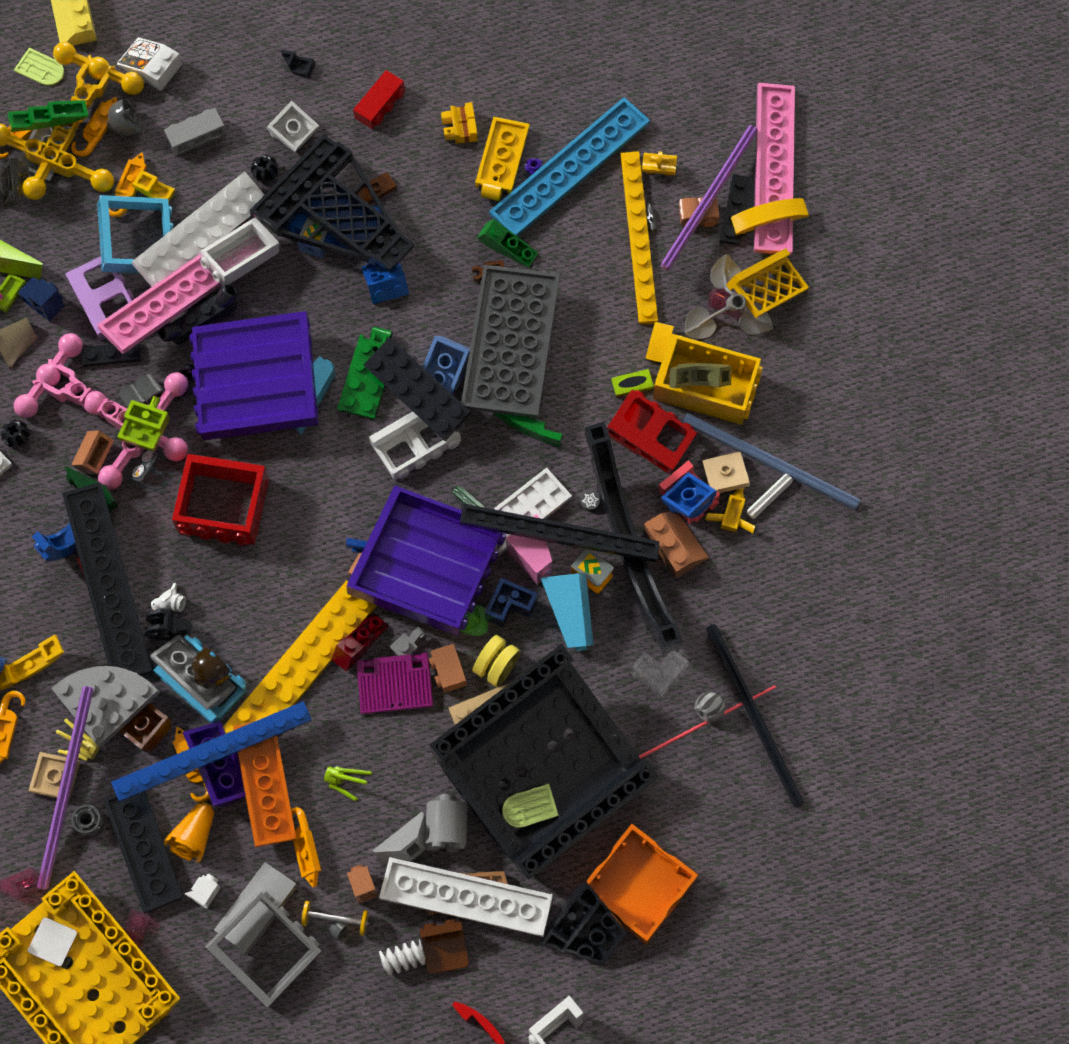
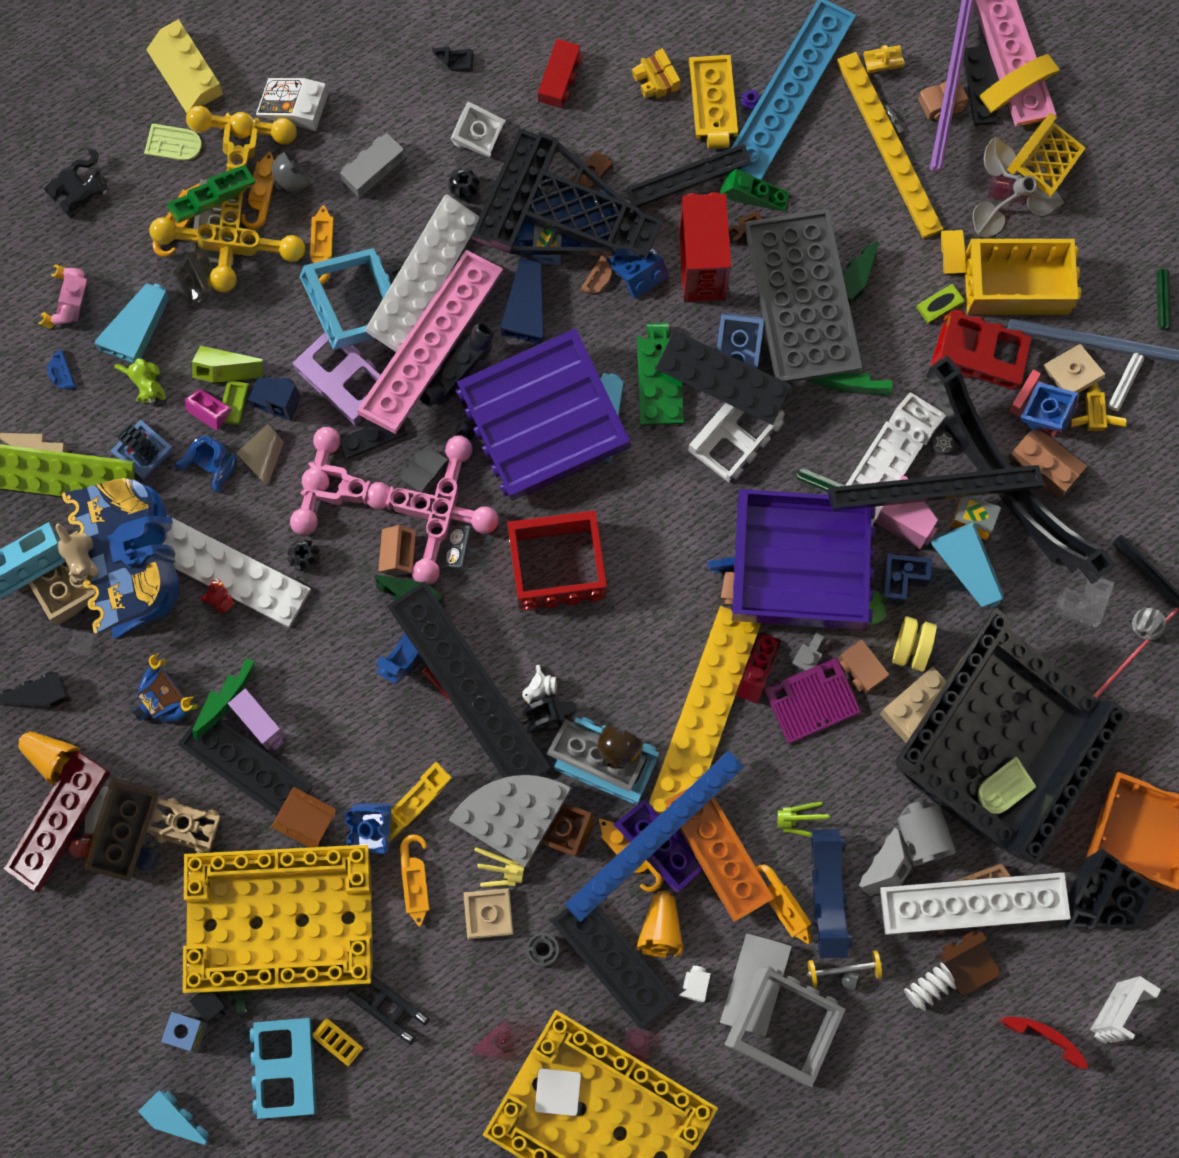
camera: 20 degrees left, 5 degrees up
(65, 788) = (509, 923): medium lavender axle -> none
(144, 424) = (446, 504): lime plate -> none
(151, 187) = (348, 241): yellow slope -> none
(239, 252) = (476, 284): white piece -> none
(278, 280) = (524, 308): none -> dark blue slope
(345, 849) = (829, 894): none -> dark blue brick
(348, 278) = (598, 278): none -> nougat tile
(362, 883) = (862, 924): nougat brick -> none
(439, 275) = (704, 247): none -> red window
(454, 214) = (688, 176): none -> black plate
(568, 337) = (858, 272): none -> dark green slope
(572, 472) = (917, 418): none -> white plate
(700, 374) = (1019, 273): olive arch -> none
(829, 435) = (1163, 299): none -> dark green axle

